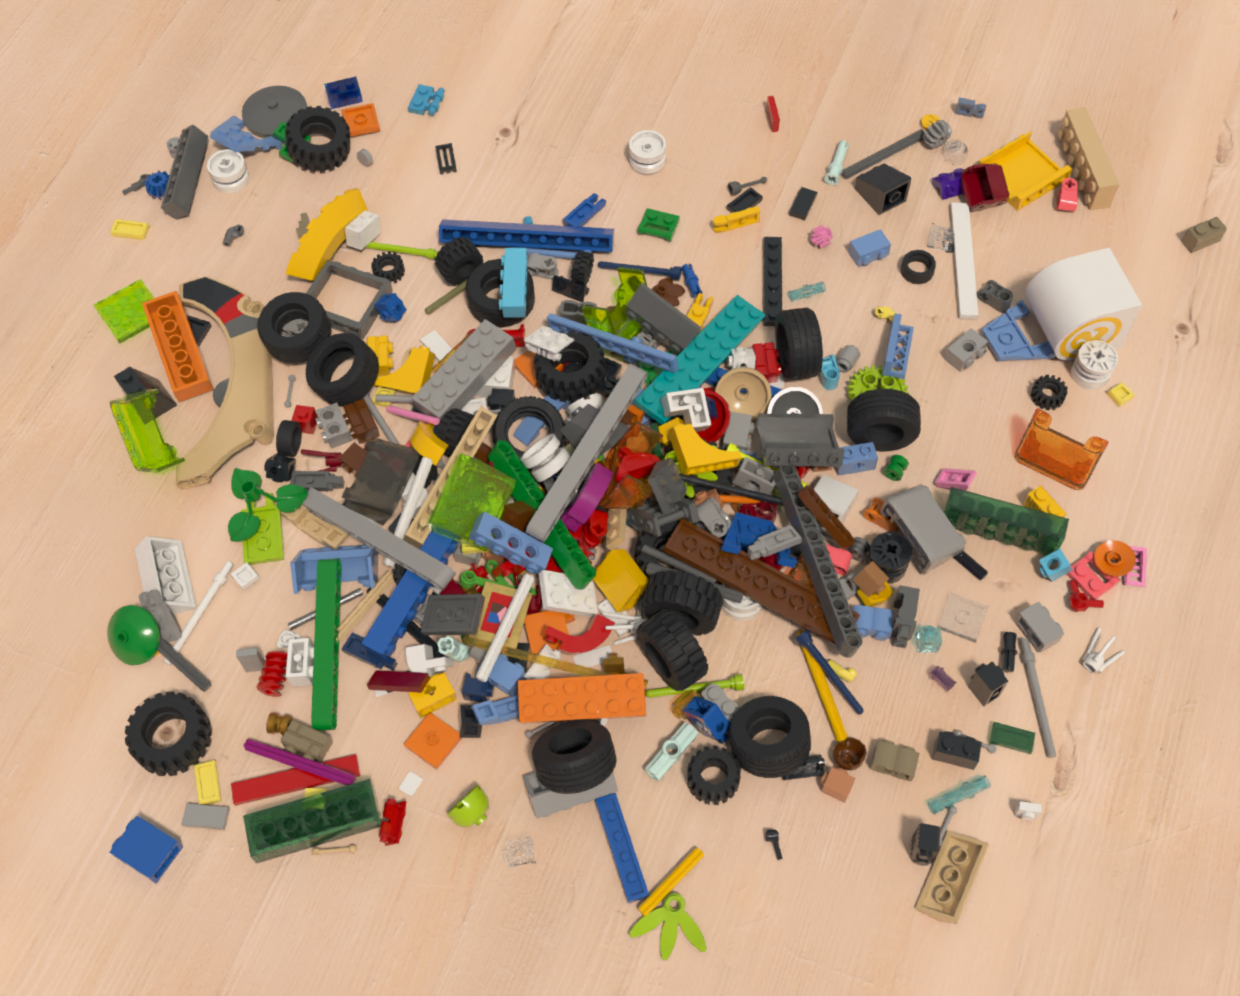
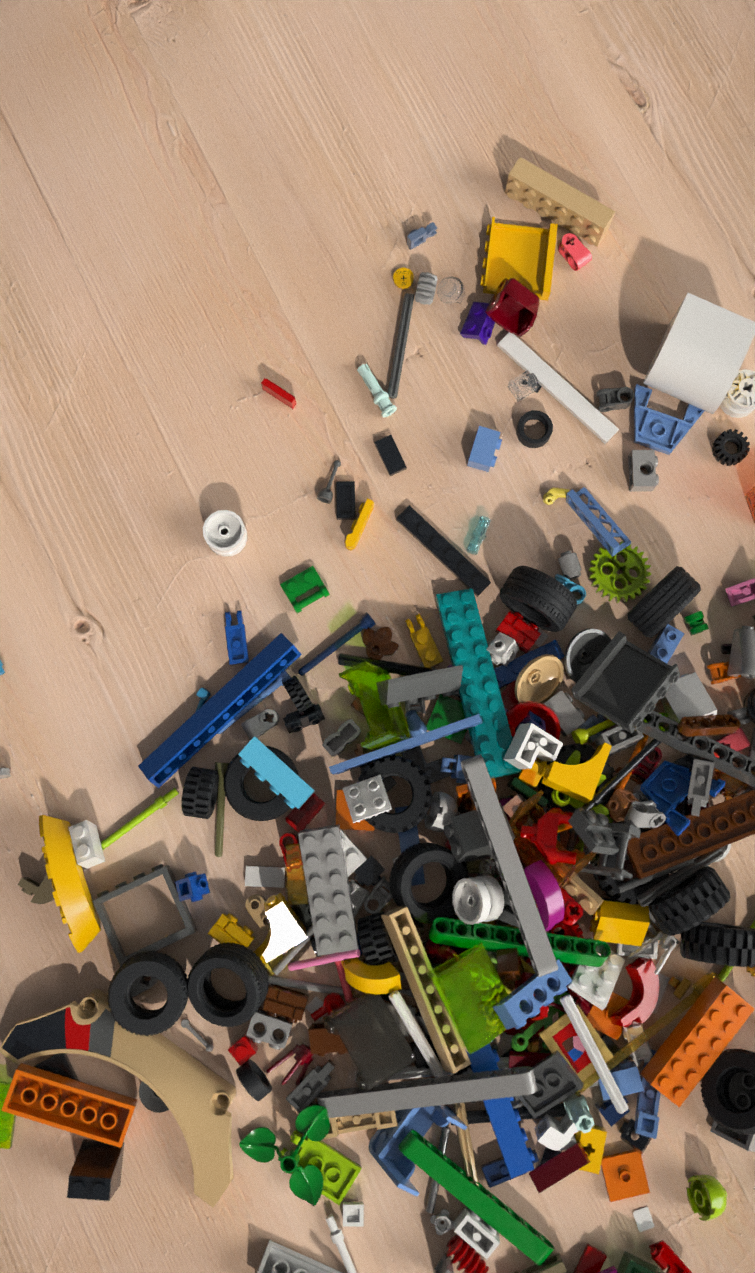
camera: 50 degrees left, 20 degrees up
(142, 433) = (152, 1207): clear neon green windscreen -> none
(279, 467) = (274, 1108): black brick -> none
(388, 260) = (131, 852): black tyre -> none
(448, 168) = (79, 711): black tile -> none
(691, 280) = (385, 614): blue pin -> none
(821, 236) = (439, 474): bright pink gear -> none
(883, 187) = (436, 381): black slope -> none
(1203, 234) = (701, 192): dark tan brick -> none

